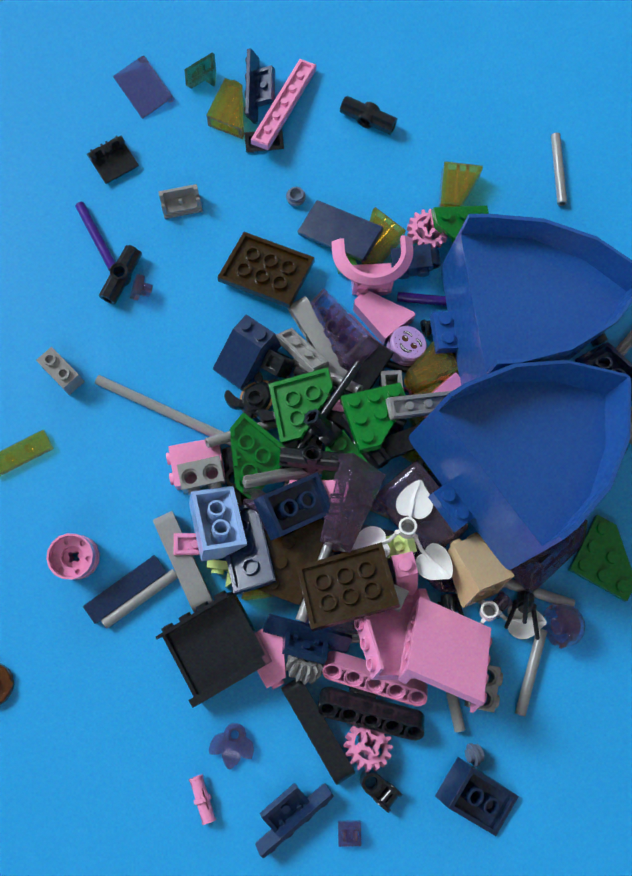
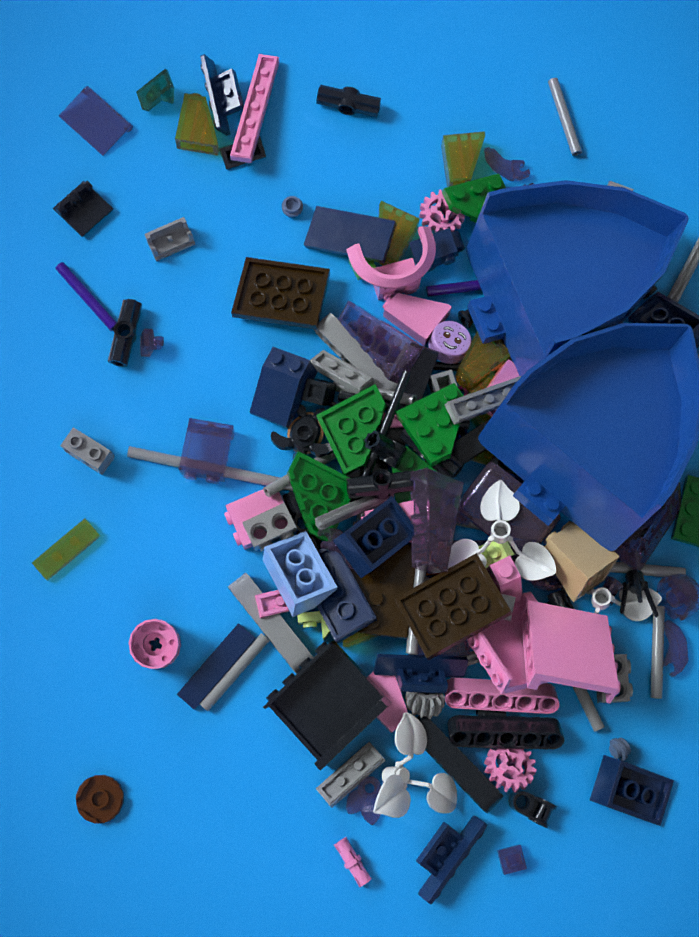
camera: 15 degrees left, 0 degrees up
(164, 393) = (206, 450): none -> clear purple panel
(220, 717) = (350, 774): none -> light grey tile
(249, 751) = (393, 797): none -> white plant
(496, 204) = (506, 168): none -> clear purple piece
(550, 674) = (677, 650): none -> clear purple piece

